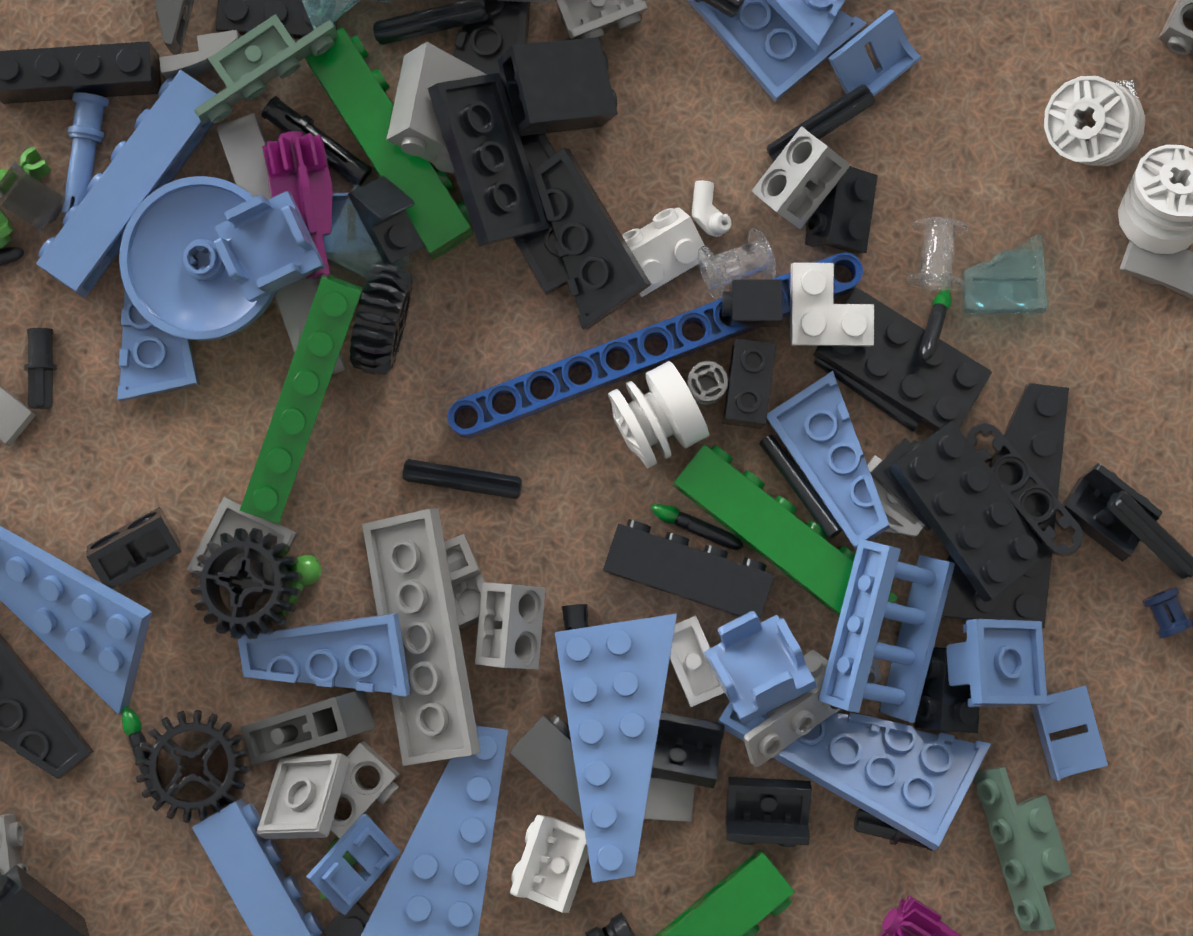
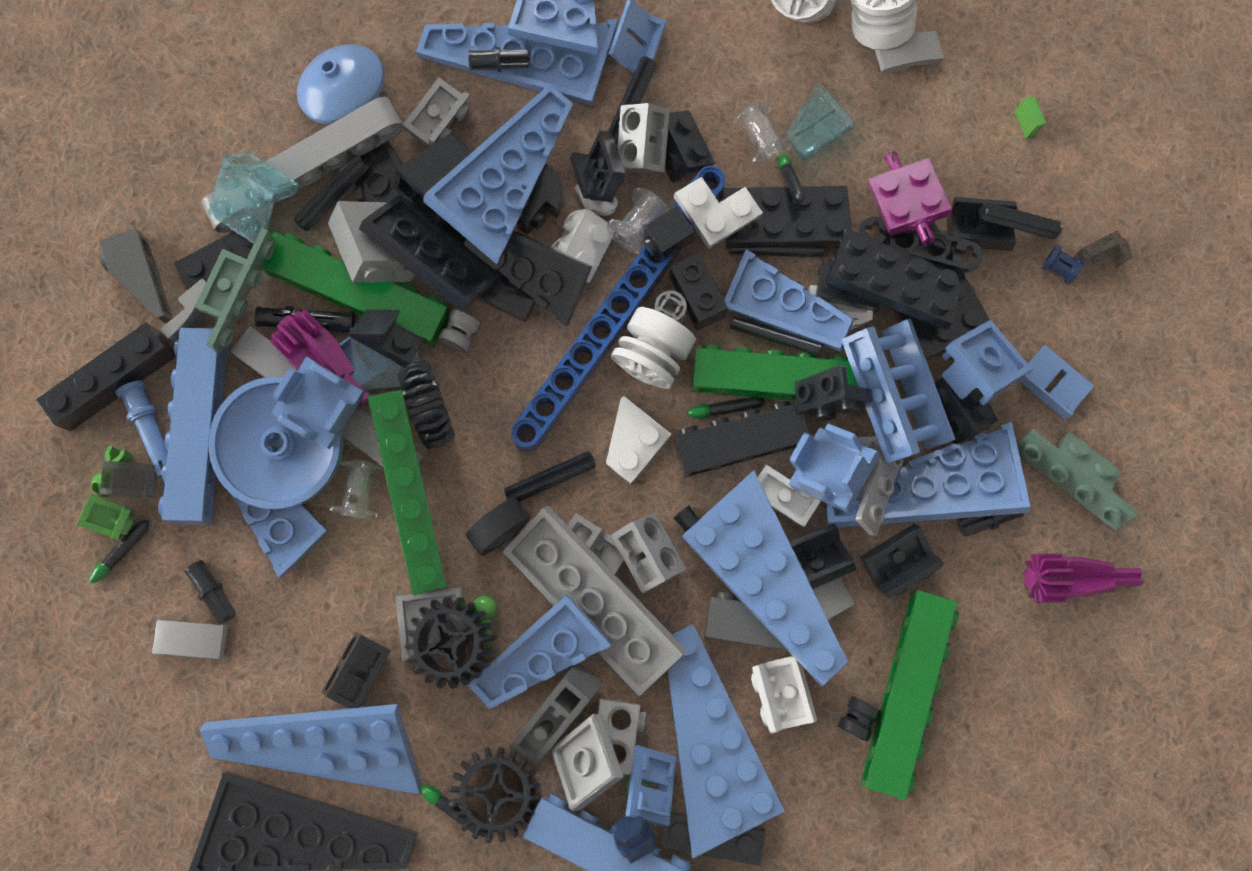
camera: 35 degrees left, 5 degrees down
(258, 358) = (359, 486): none -> clear hose
(300, 903) = (634, 838): none -> dark blue piece
(372, 495) = (497, 526): none -> black tyre
(478, 257) = (459, 330): none -> light grey wheel
(575, 498) = (634, 441): none -> white wing
(608, 125) = (495, 181): none -> medium blue wing
(660, 166) = (545, 197): none -> black brick
(731, 181) = (599, 171): none -> black bracket
(805, 587) = (829, 394): none -> black bracket
(1046, 431) = (909, 197): none -> magenta plate

